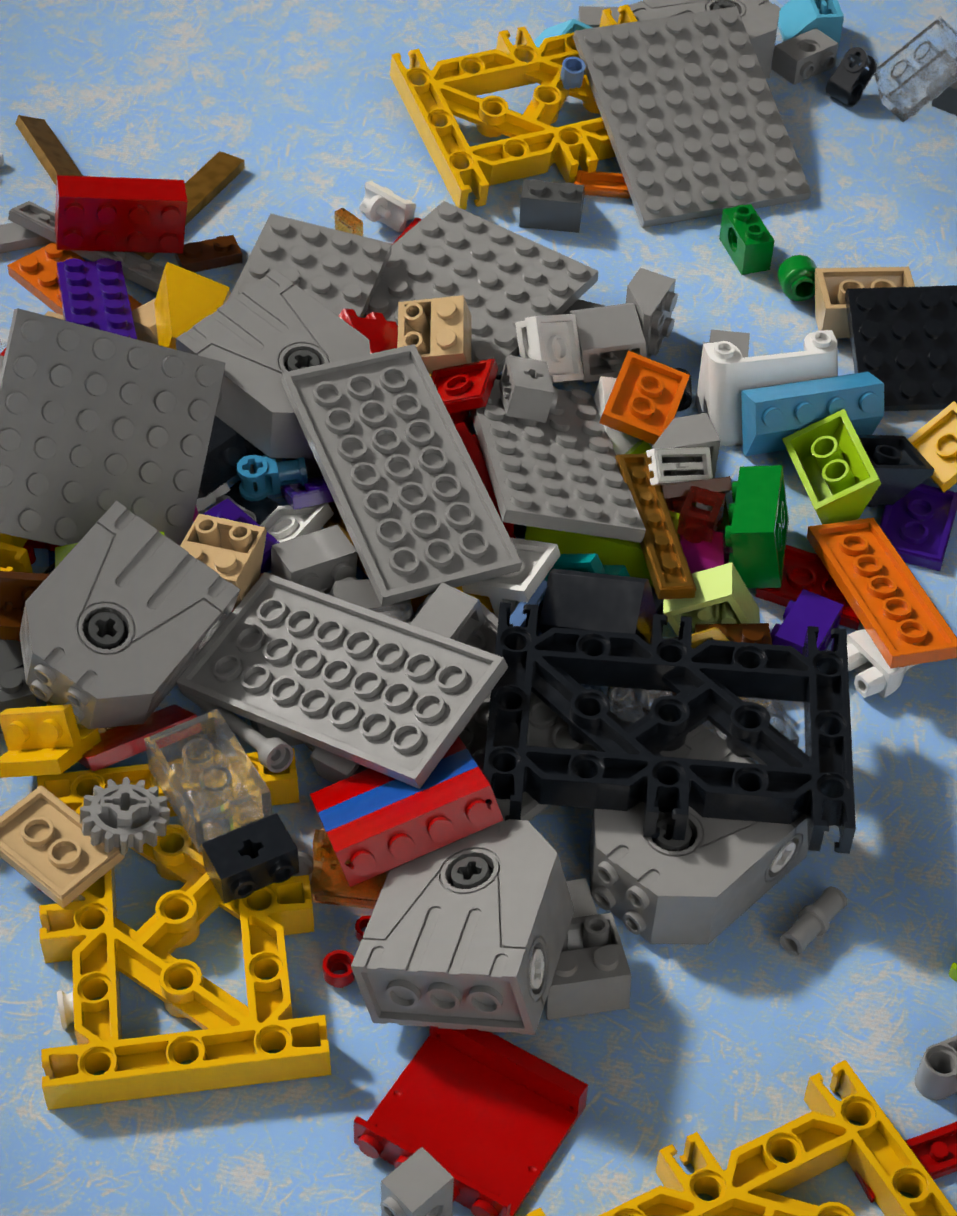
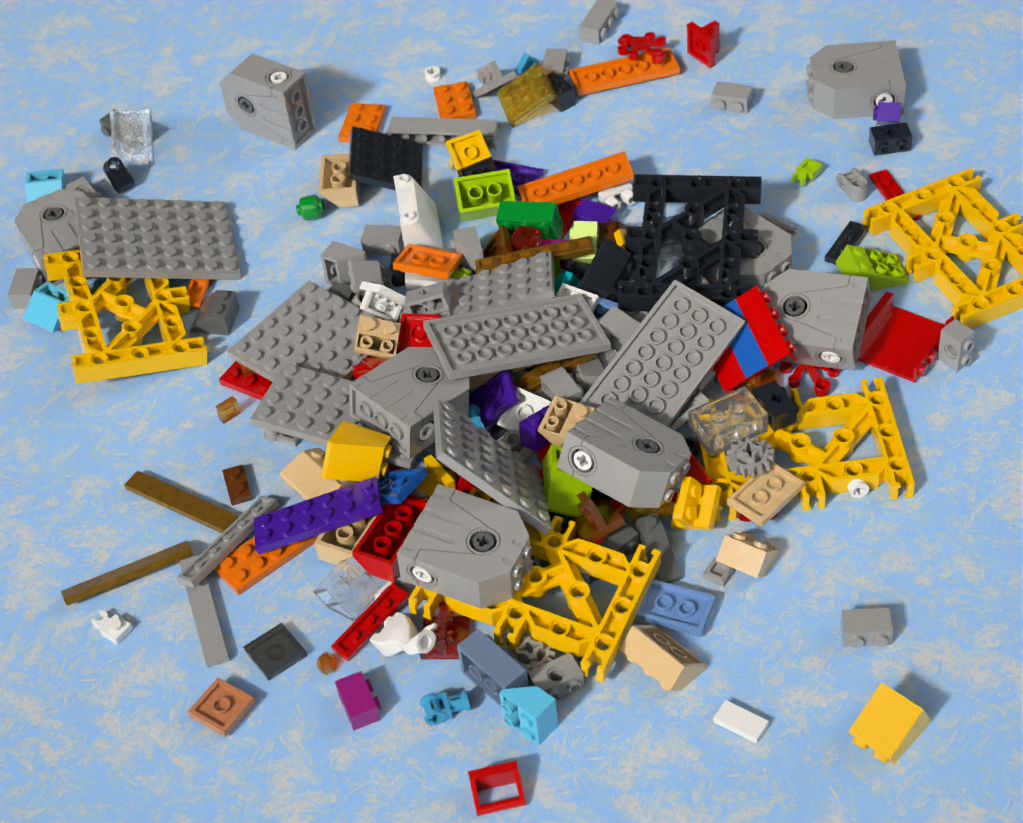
camera: 80 degrees left, 0 degrees up
(120, 214) = (223, 508): red brick -> none
(385, 206) = (206, 393): white hips -> none
(572, 72) = (113, 282): medium blue hose -> none
(659, 467) = (493, 242): white tile -> none
(678, 1079) = (881, 268): none -> lime slope
(746, 239) = (270, 227): green brick -> none
(767, 1043) = (851, 235): none -> black tile
(787, 408) = (441, 197): dark azure slope -> none

